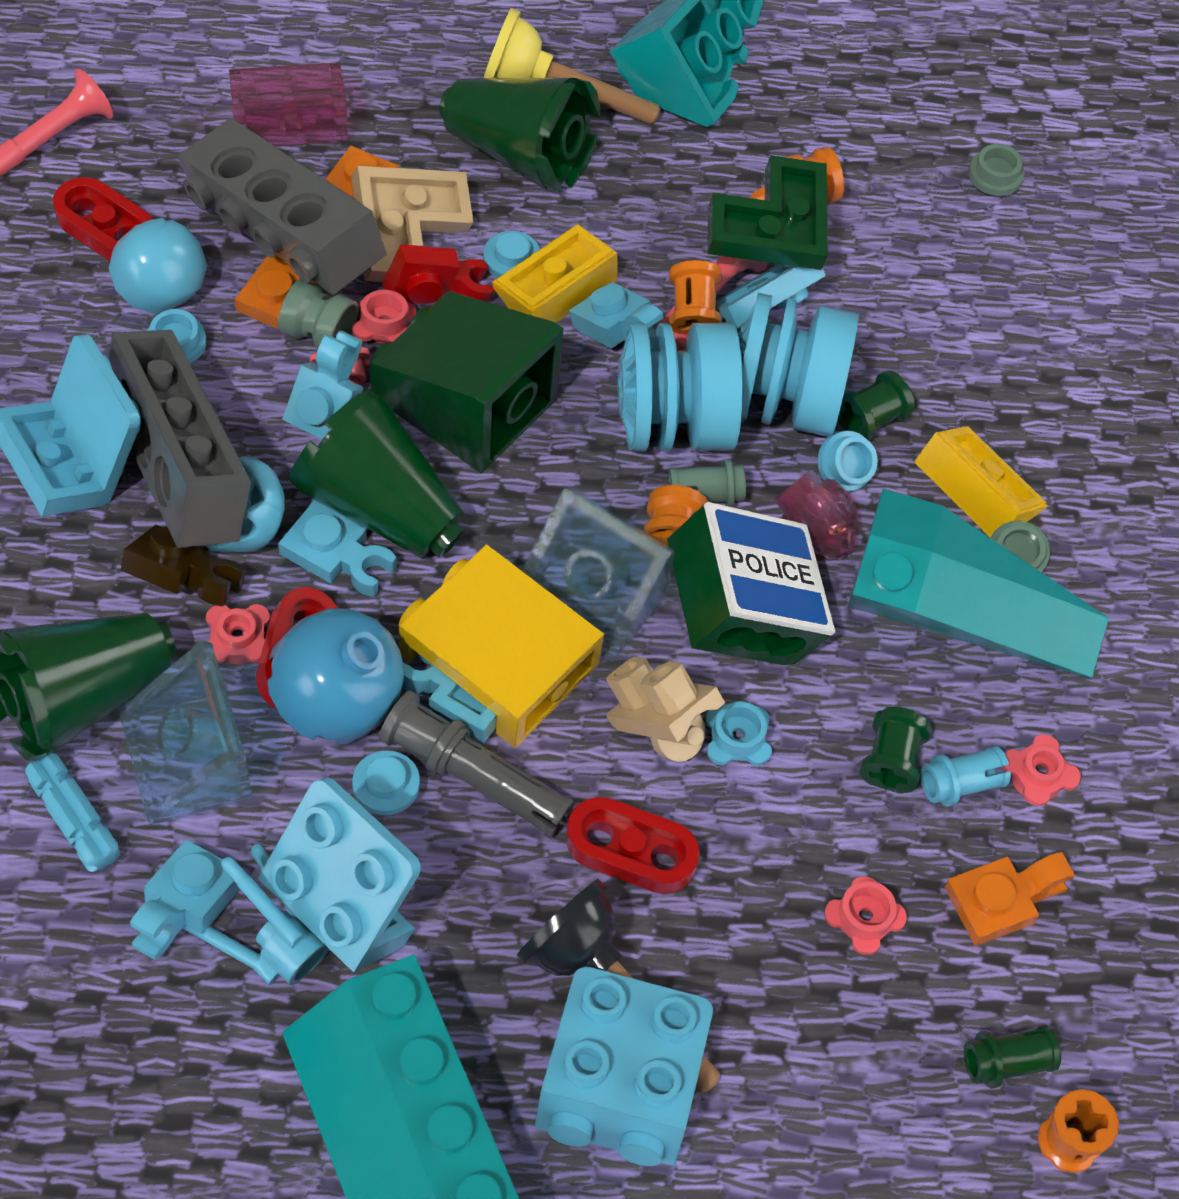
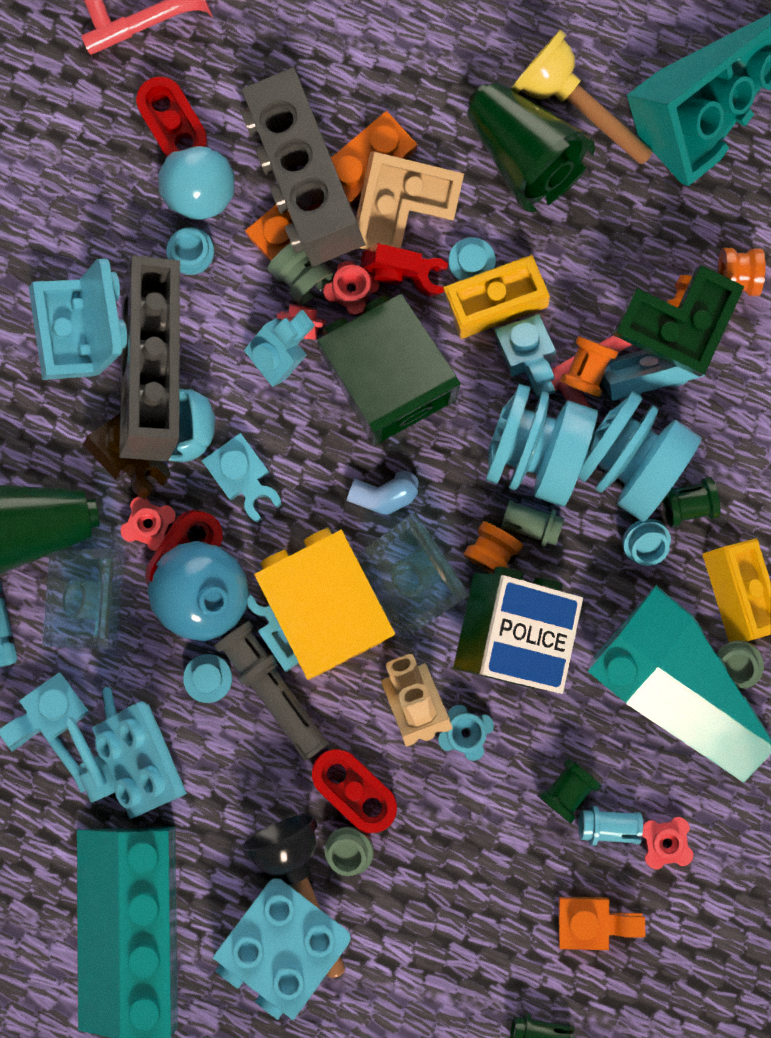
camera: 25 degrees right, 25 degrees up
(291, 103) = (351, 53): clear pink hinge -> none
(379, 479) = (290, 443): dark green cone -> none
(523, 513) = (388, 497): none -> light blue arm
(658, 920) = (349, 851): none -> sand green plate
(825, 510) = (601, 582): clear pink rock -> none
(868, 896) = (488, 913): coral plate -> none

